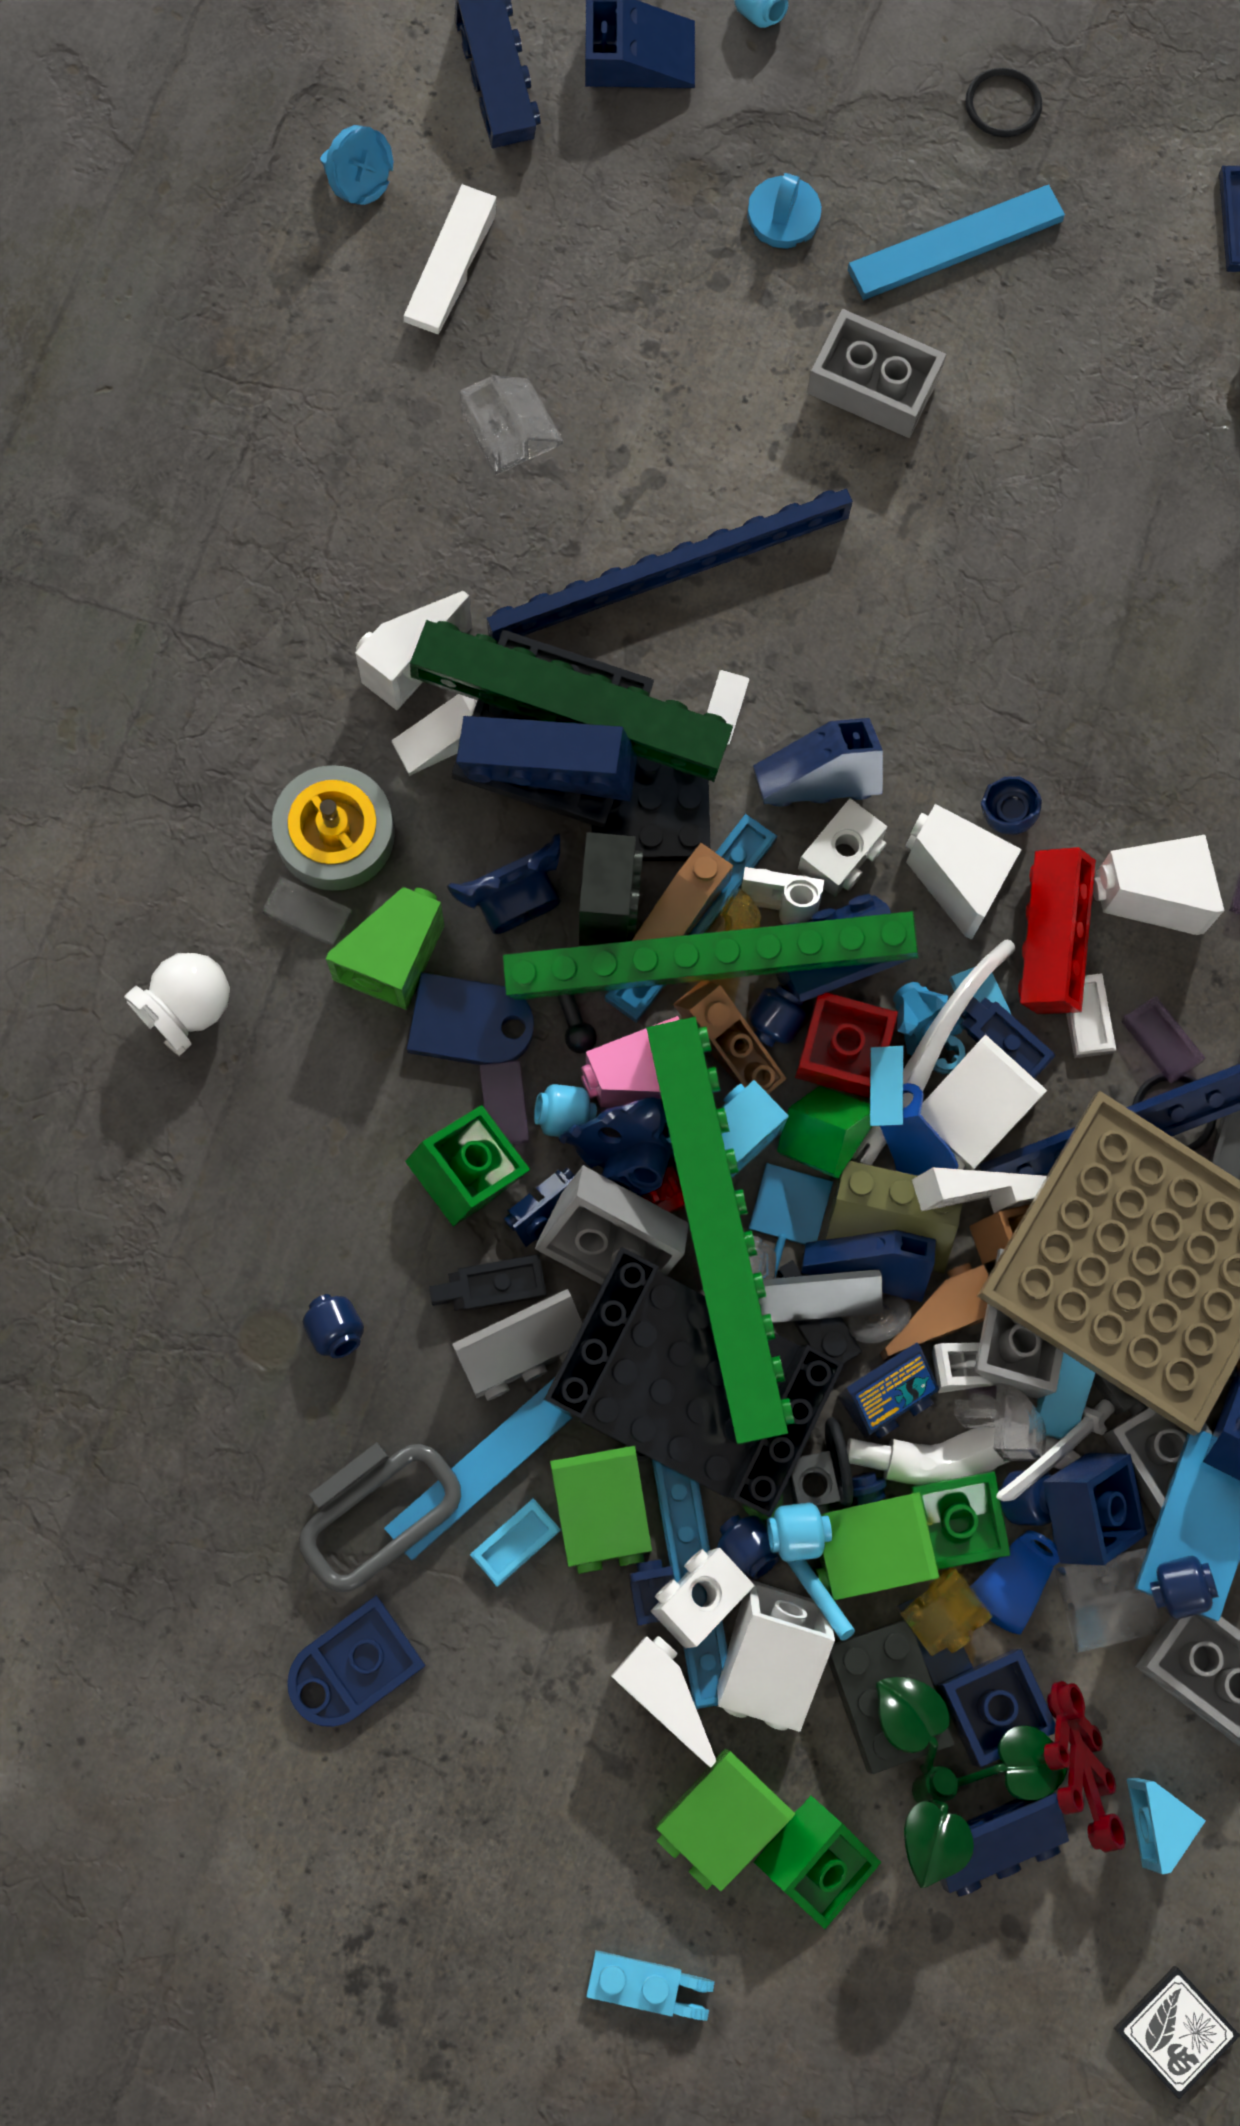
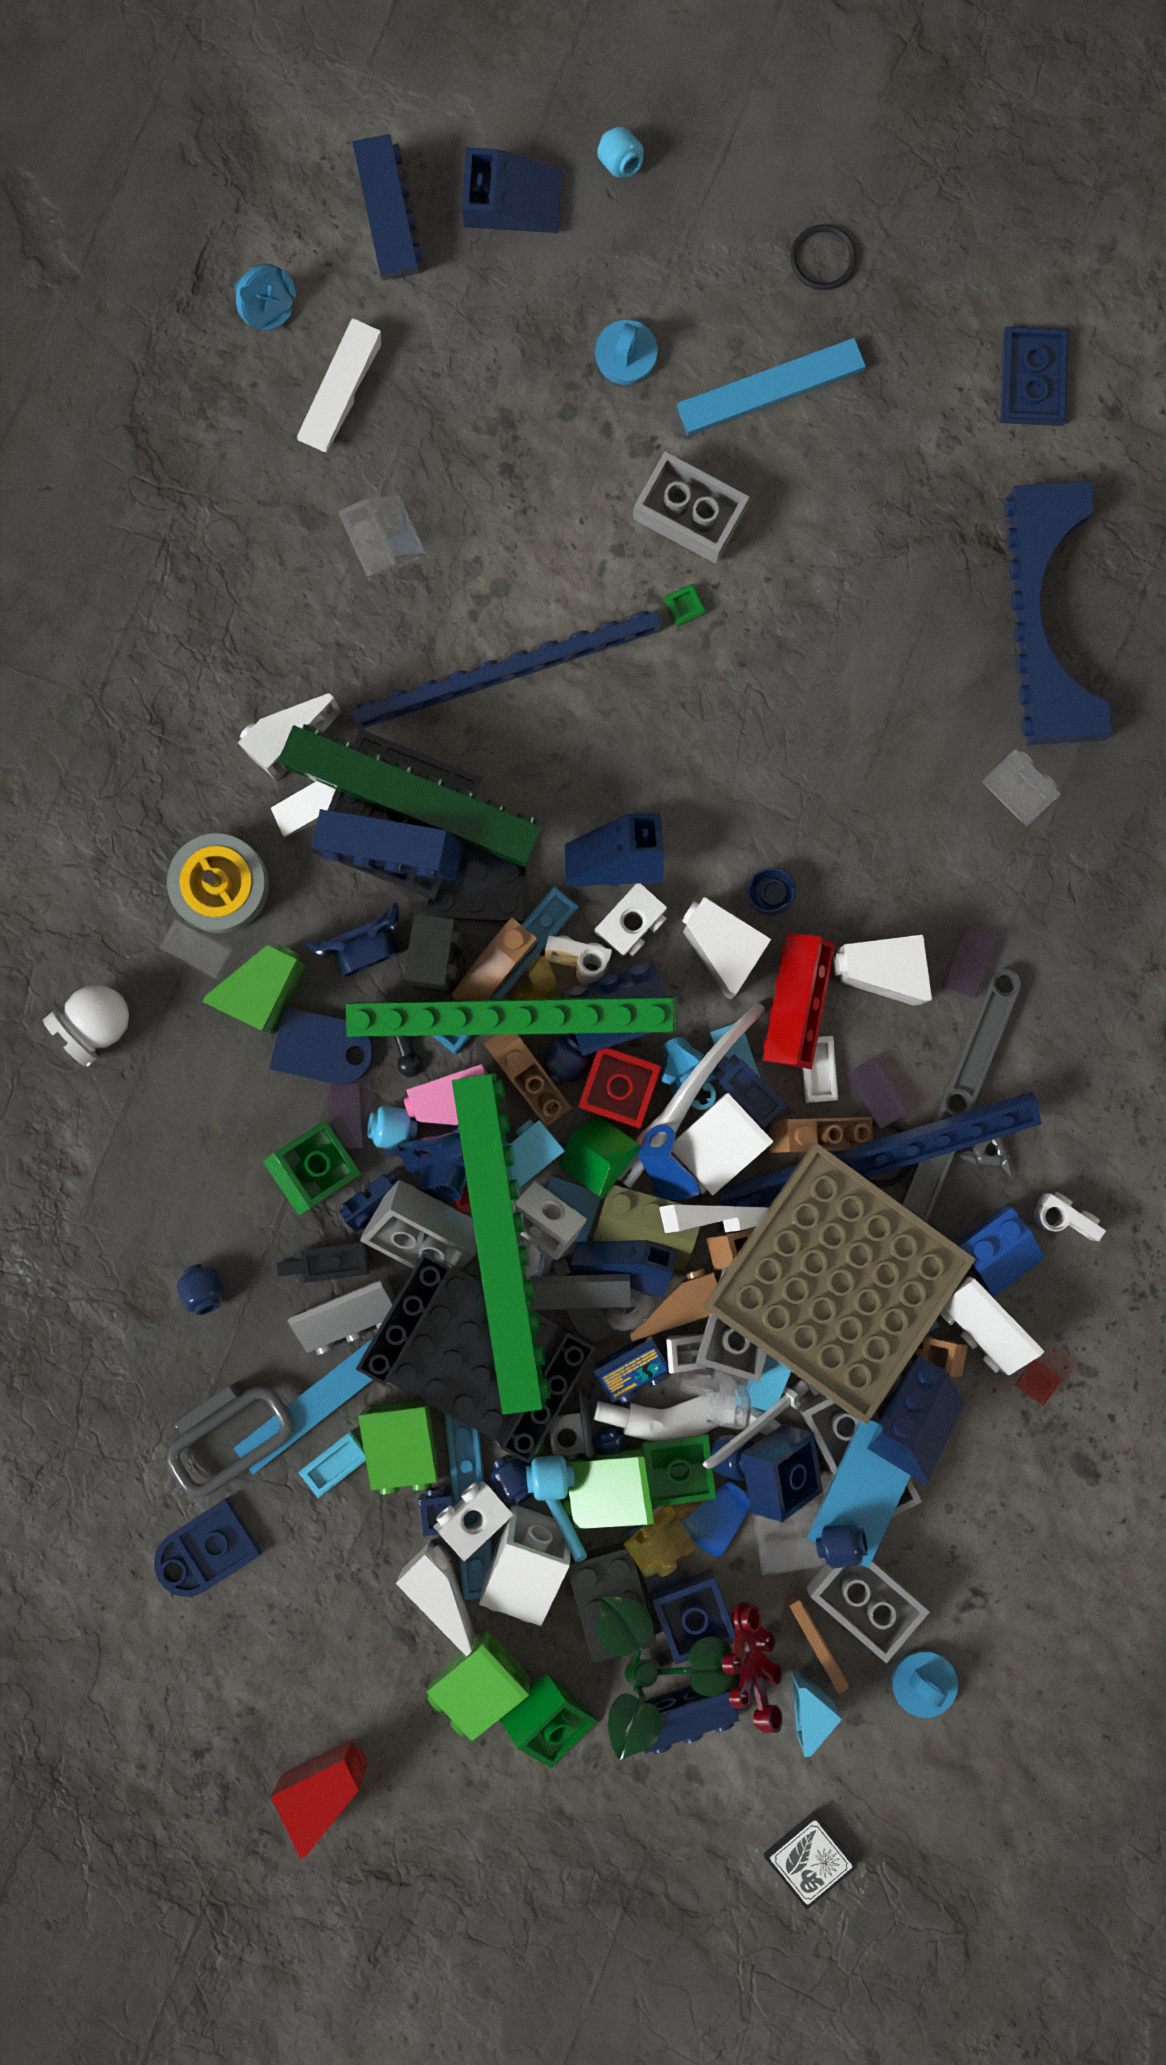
camera: 10 degrees right, 10 degrees up
(523, 1976) = (317, 1793): none -> red slope
(644, 1985) = (414, 1801): medium azure hinge -> none
(728, 697) = (545, 791): white sticker -> none
(774, 1212) = (549, 1220): none -> white brick
(876, 486) = (684, 605): none -> green tile
(886, 1086) = (646, 1128): medium azure sticker -> none
(1074, 1087) = (830, 1133): none -> medium nougat slope
(1158, 1736) = (817, 1643): none -> medium nougat tile

